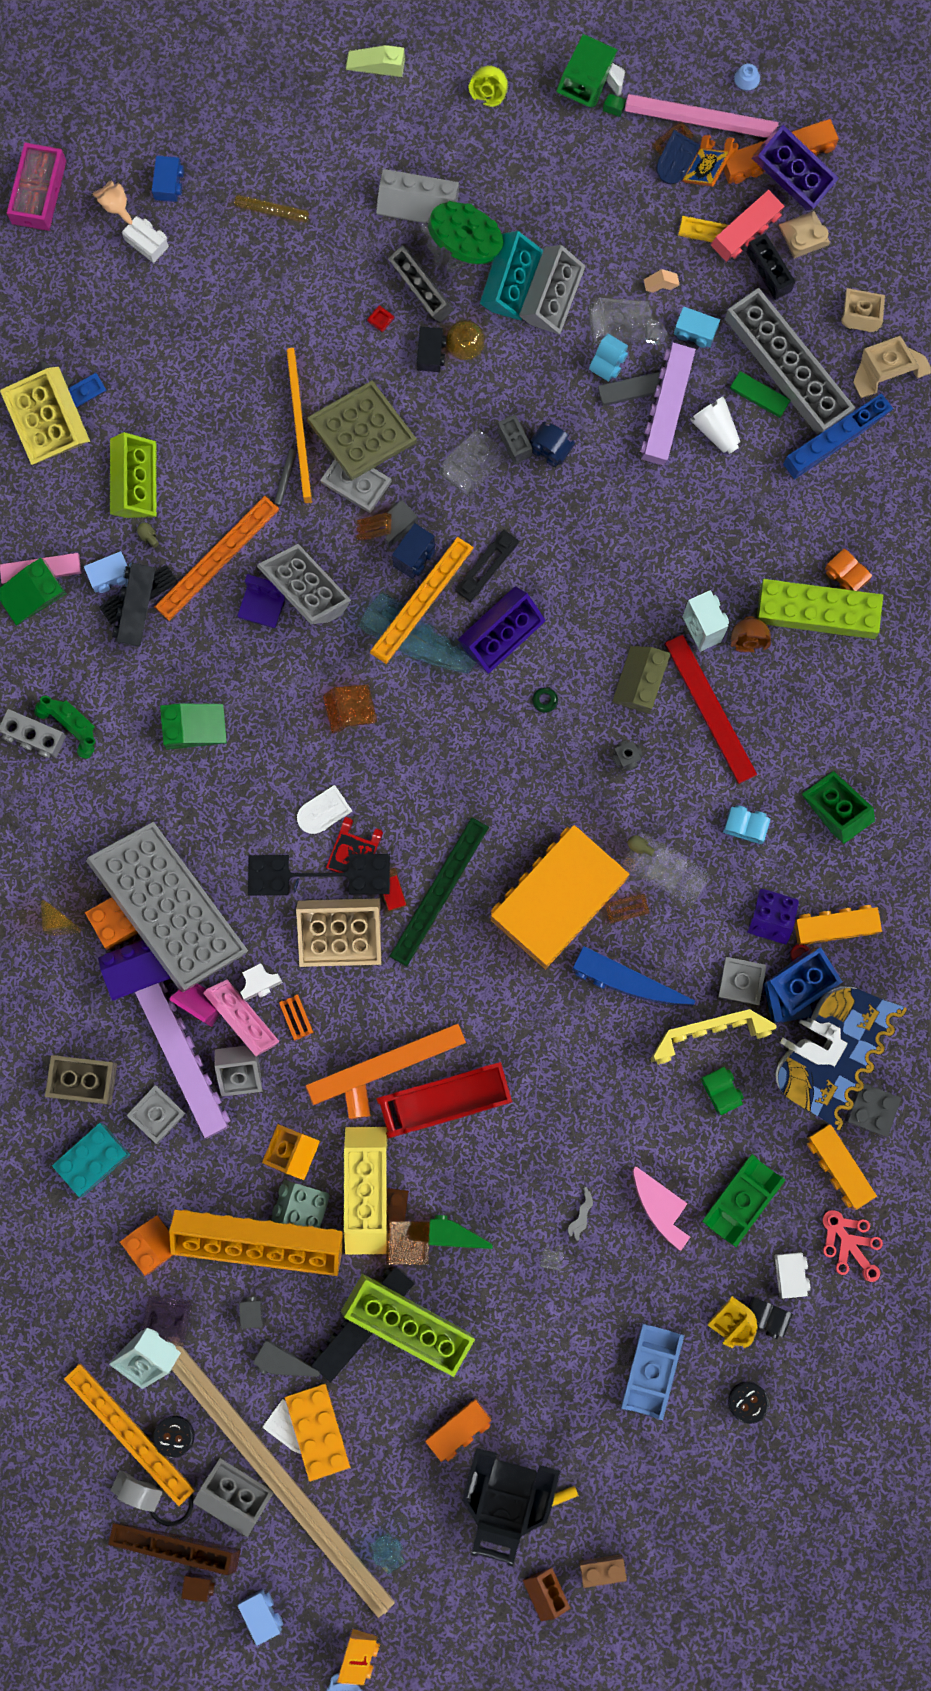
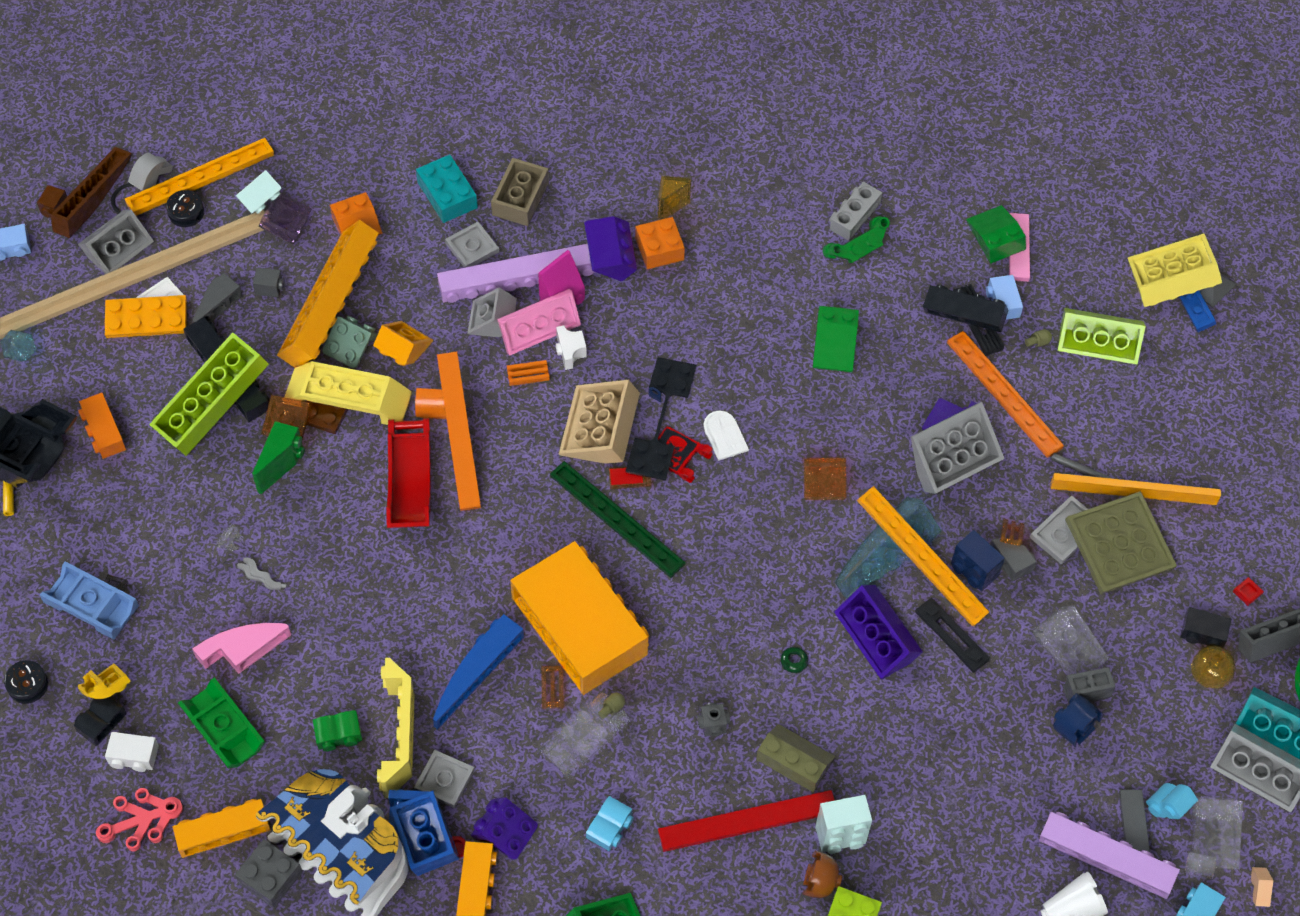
camera: 100 degrees right, 20 degrees down
(167, 906) = (660, 281): light grey plate -> none

